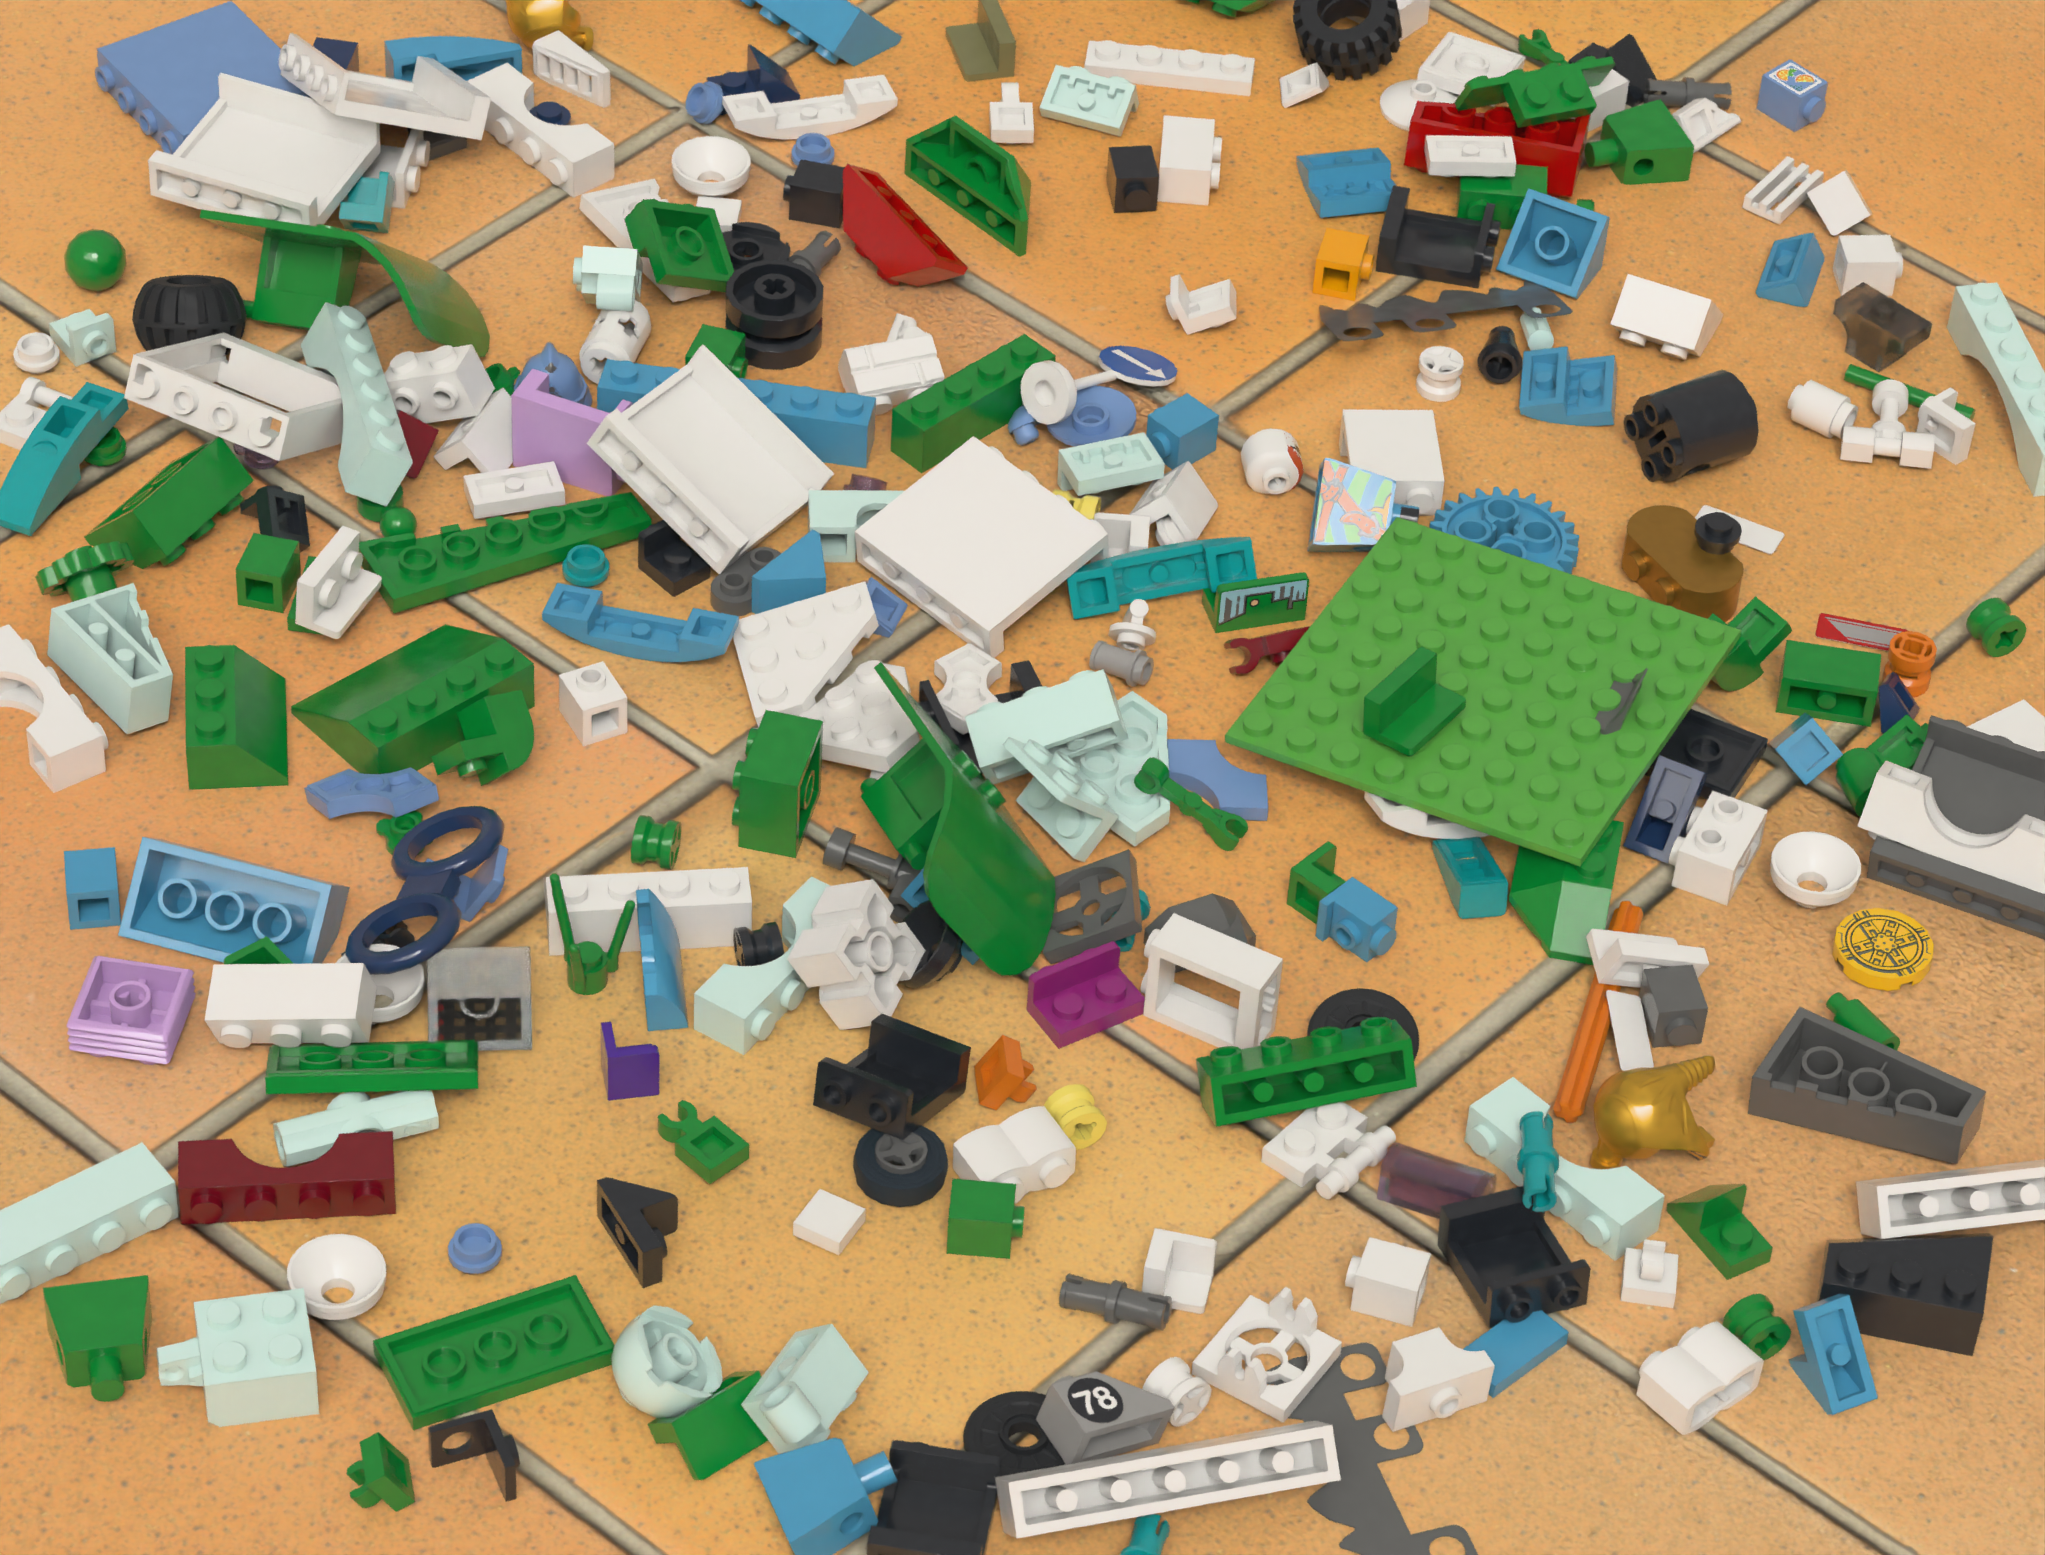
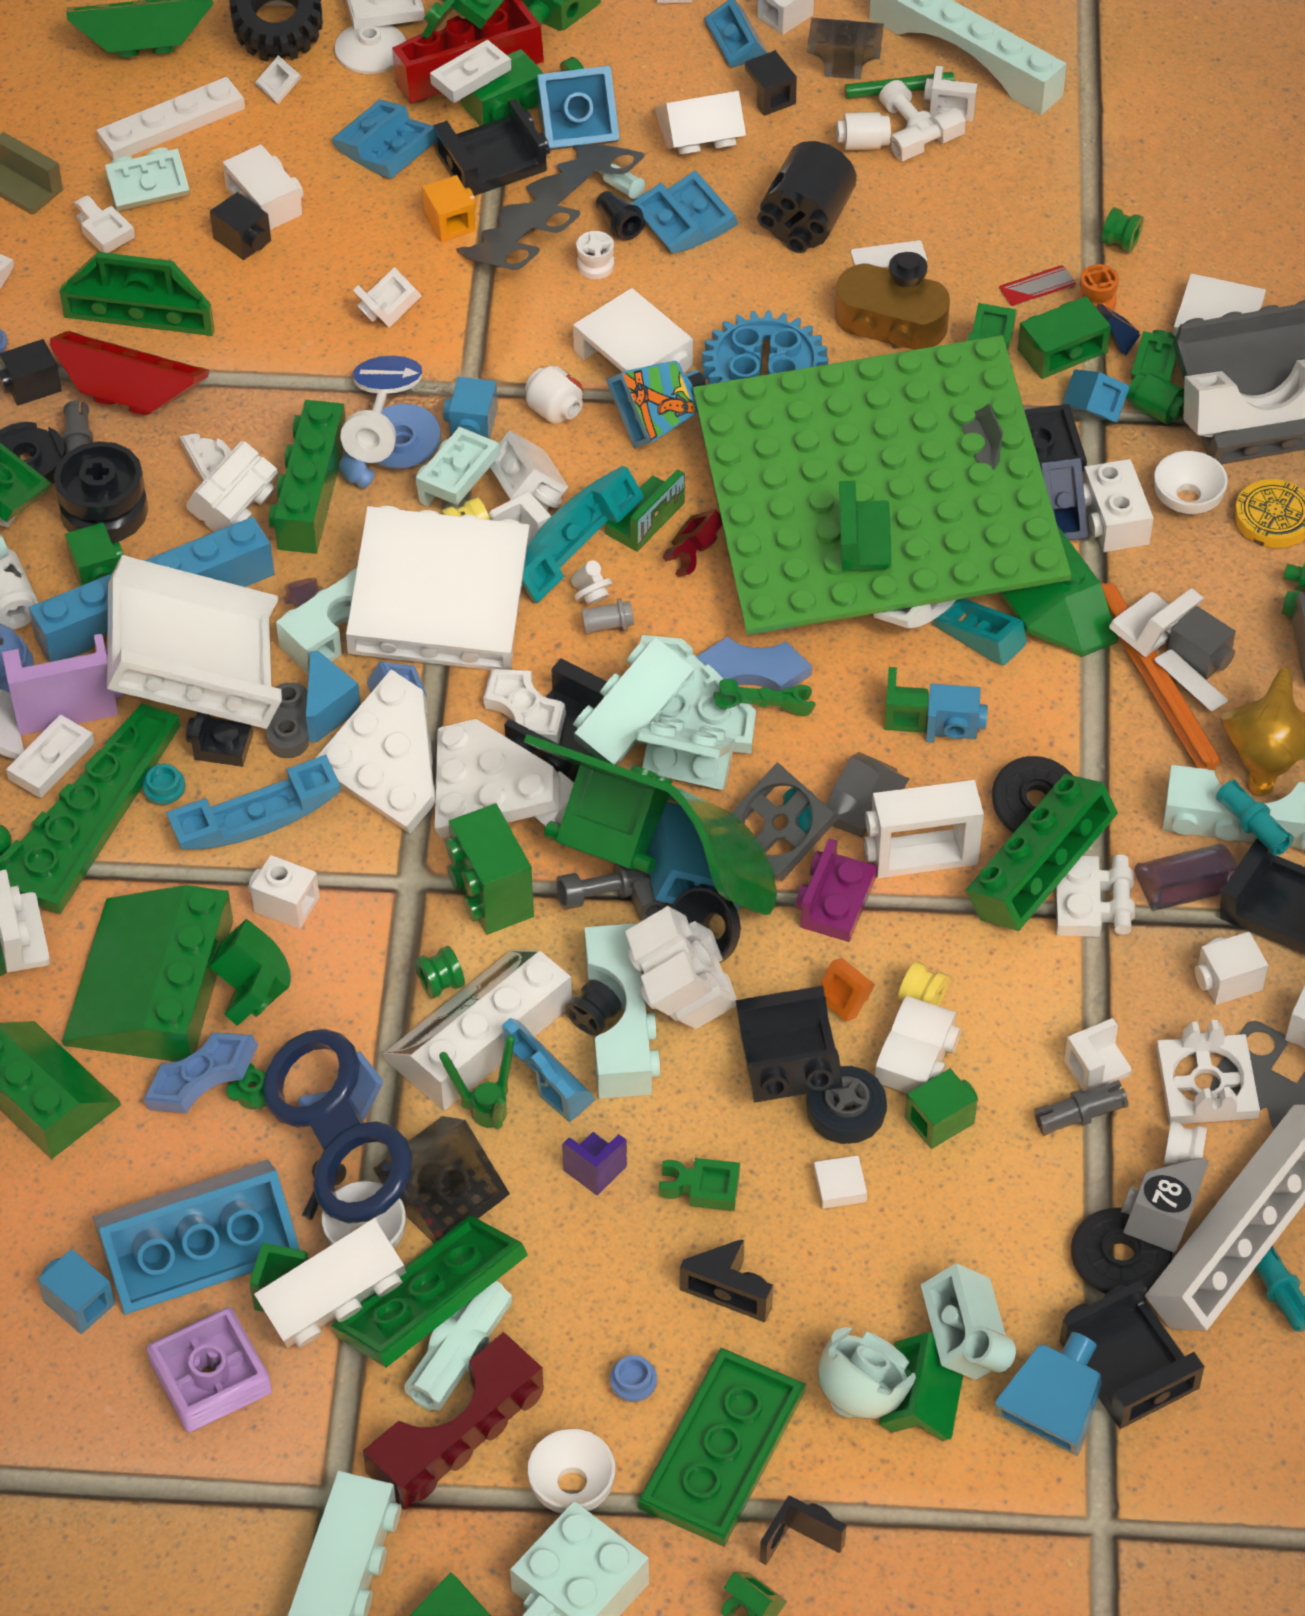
camera: 35 degrees left, 10 degrees up
(1772, 322) = (774, 82): none -> black panel

